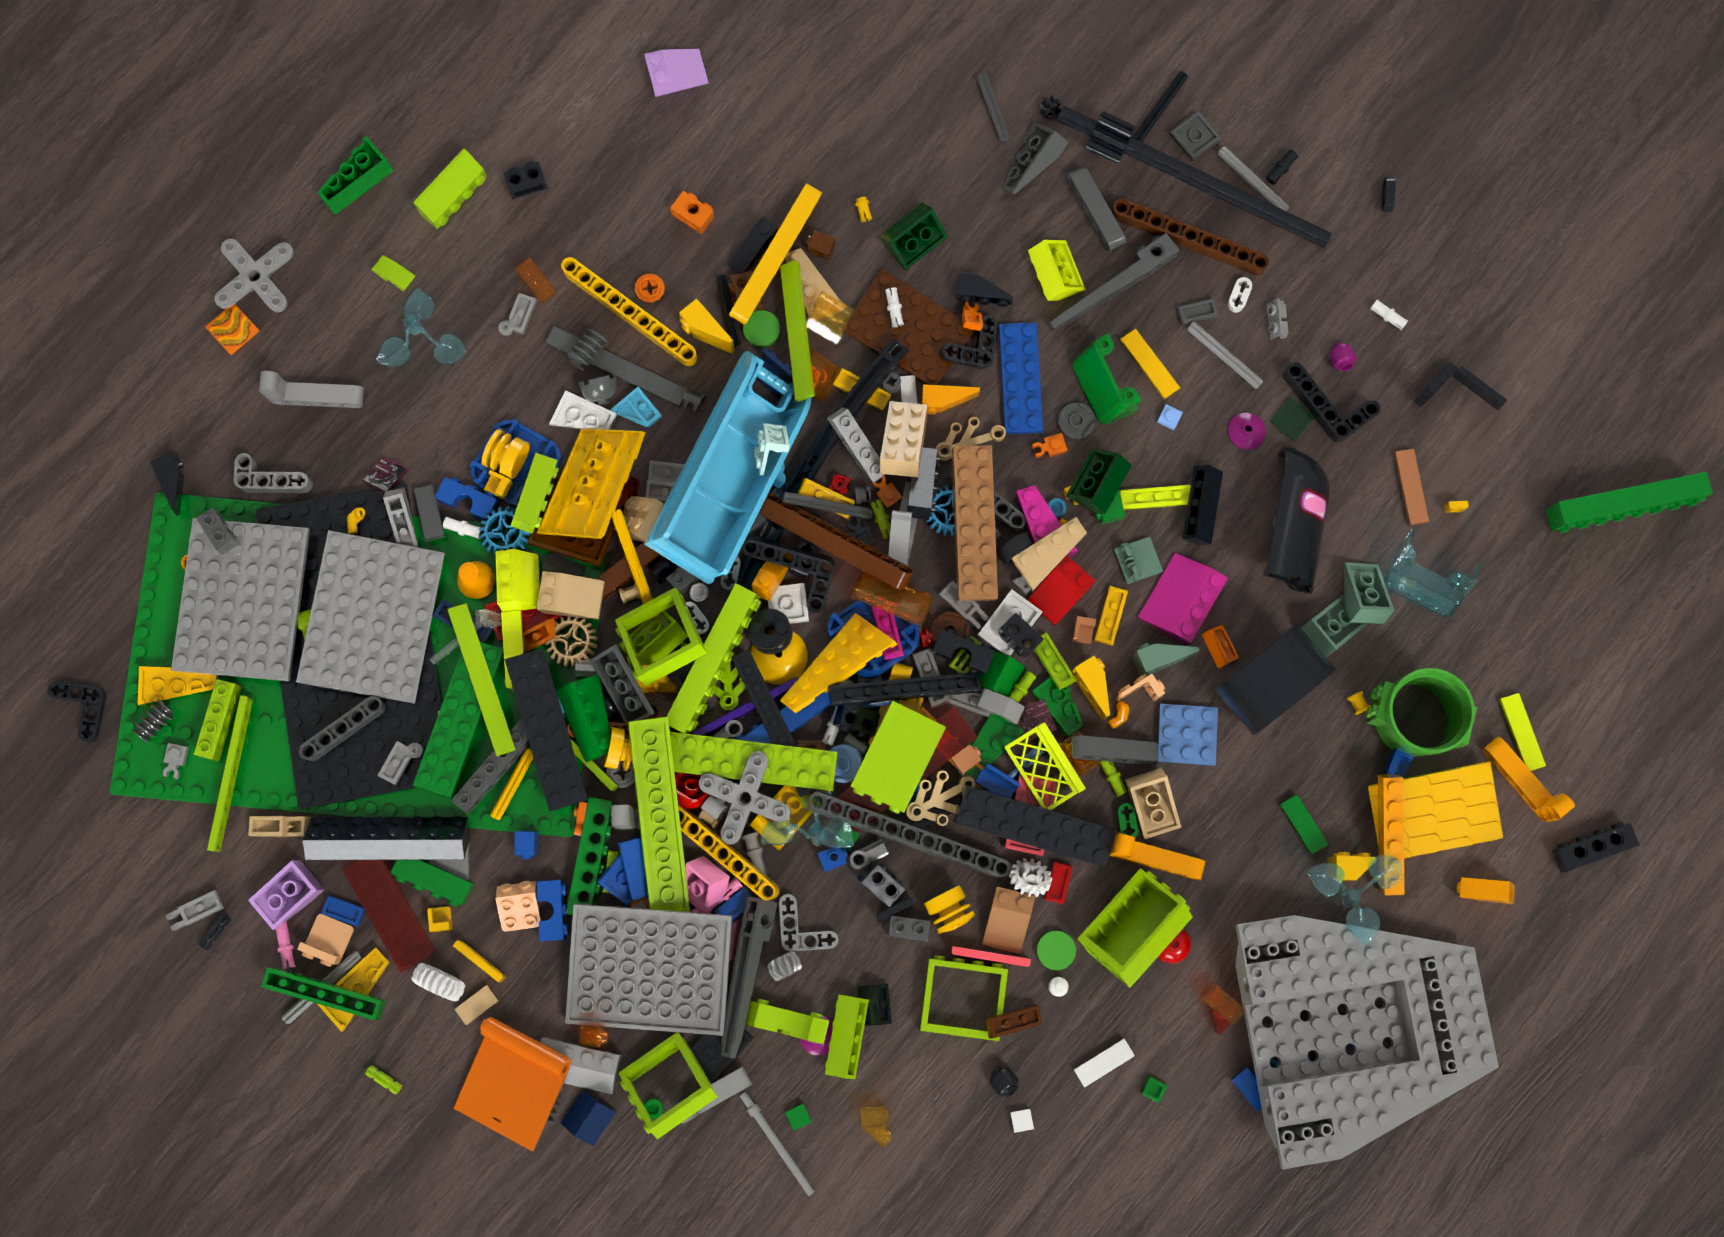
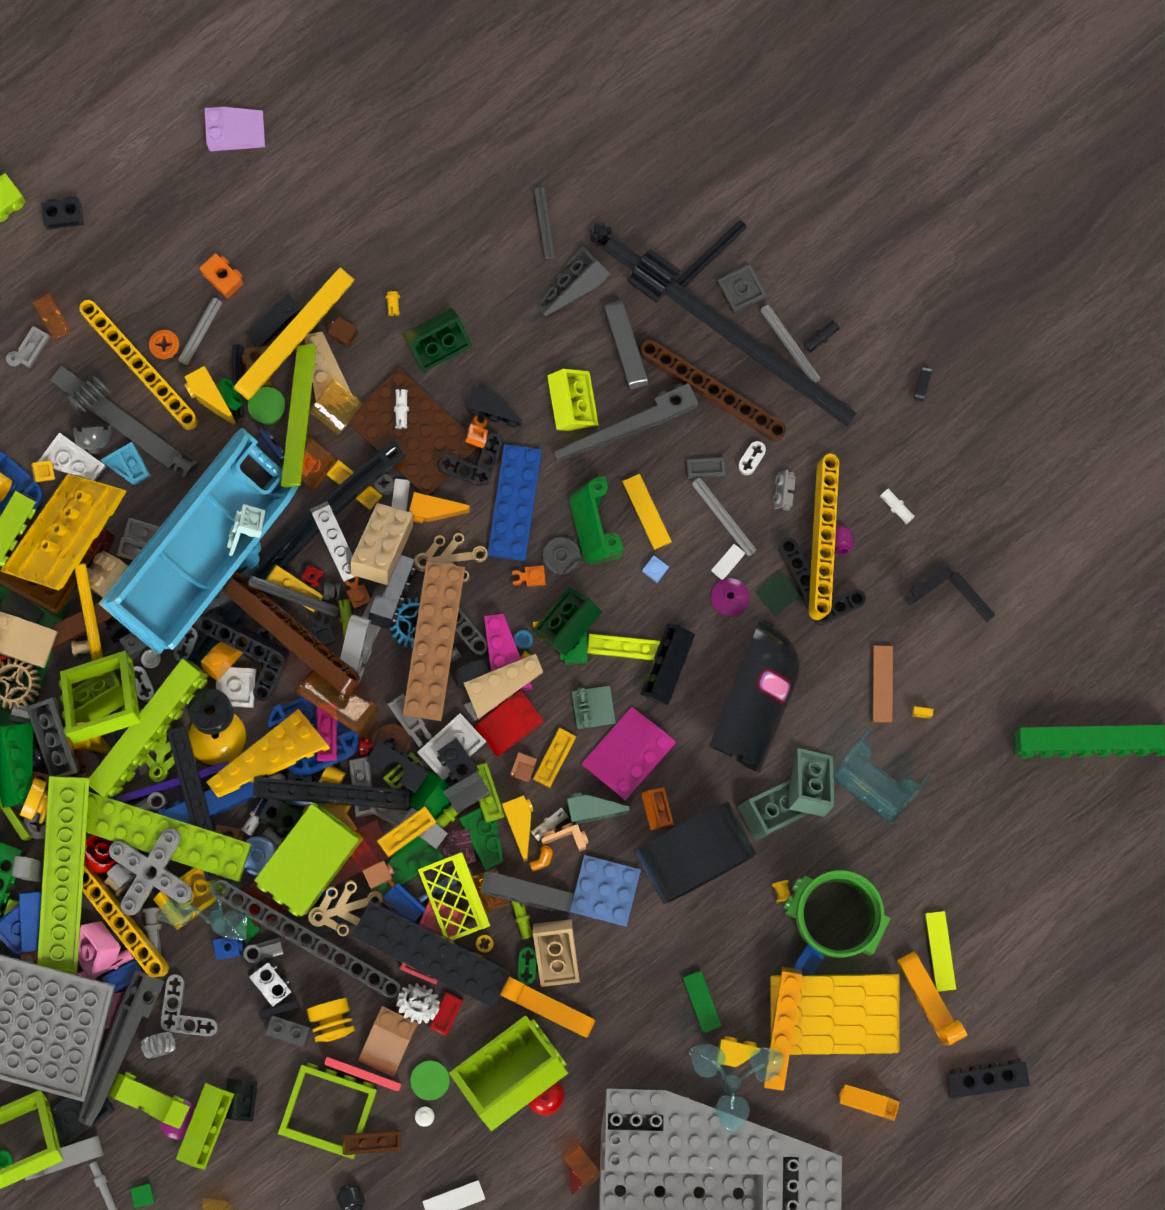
camera: 10 degrees right, 0 degrees up
(557, 430) = (42, 471): none -> yellow tile
(681, 270) = (200, 331): none -> light grey axle
(725, 322) = (229, 394): none -> green beam
(986, 712) = (406, 831): none -> yellow tile
(1036, 663) = (467, 792): none -> dark grey panel
(1087, 808) = (490, 945): none -> yellow bush
(1121, 679) = (549, 824): none -> white pin
(1237, 397) = (728, 561): none -> white sticker
(1328, 356) = (819, 543): none -> yellow beam

